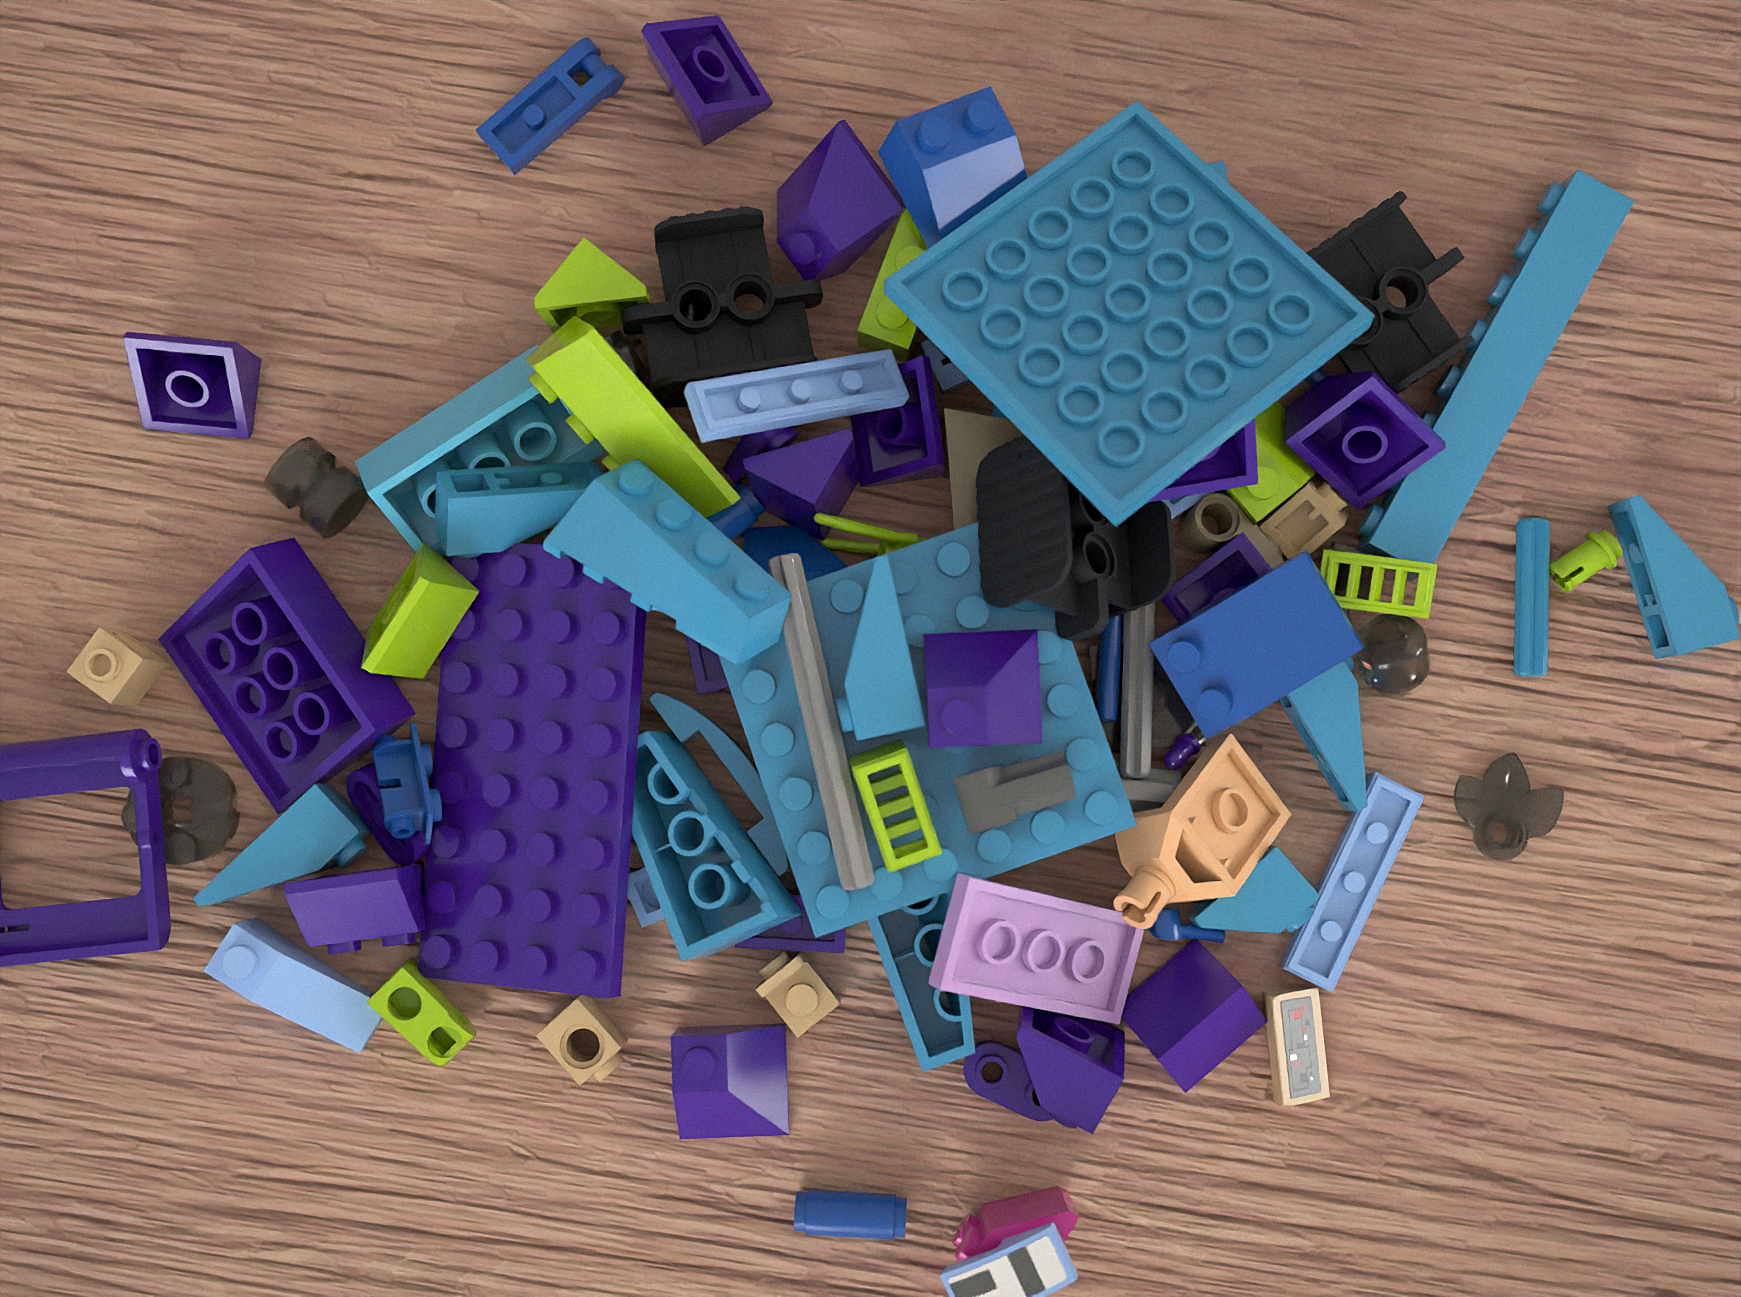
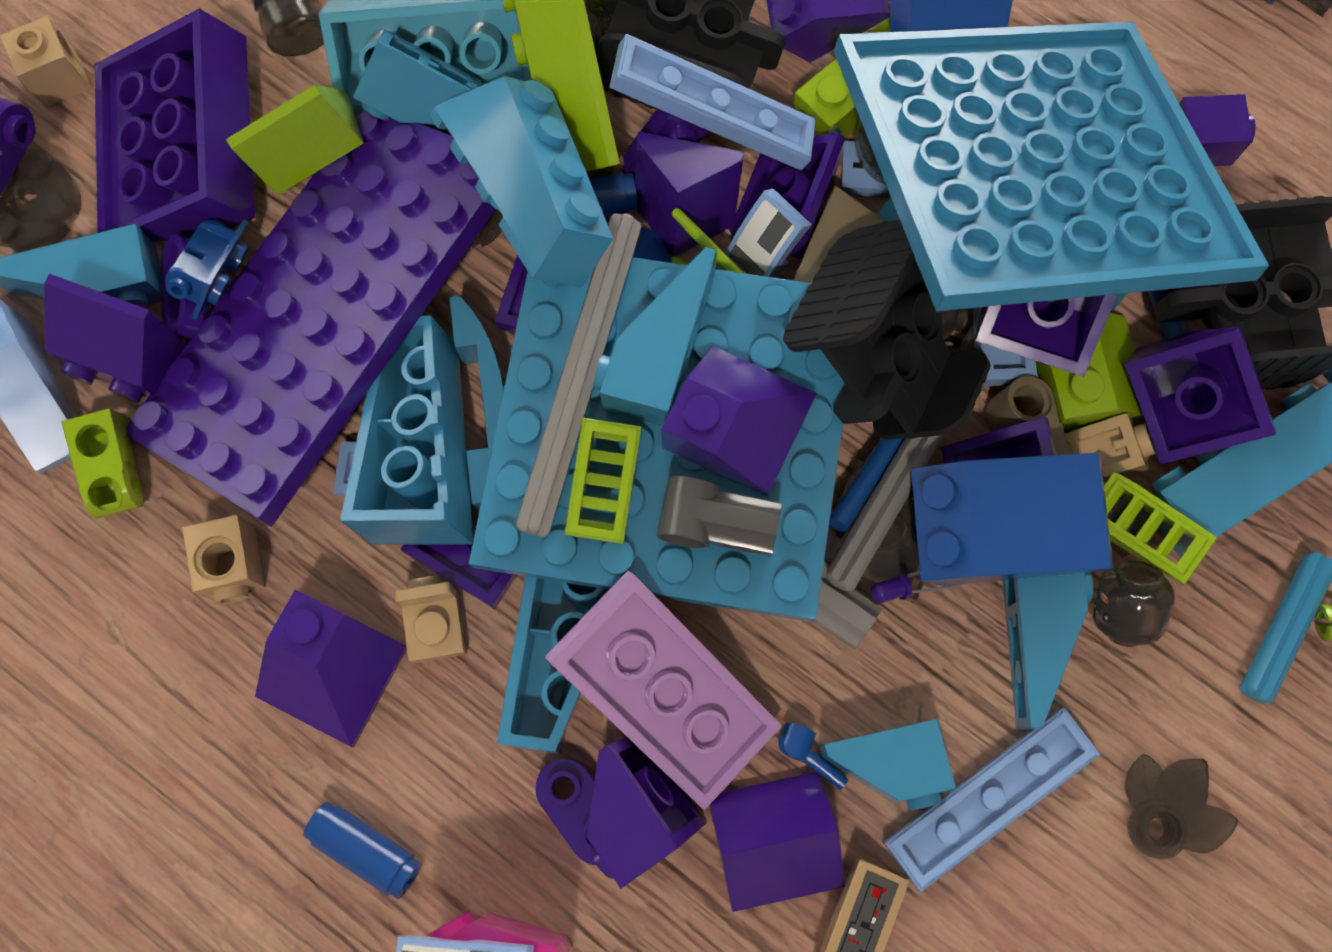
camera: 30 degrees right, 10 degrees down
(906, 491) = (767, 236): none -> slope
(1201, 837) = (868, 670): light nougat plate -> none
(1256, 154) = (1220, 125): none -> dark purple brick

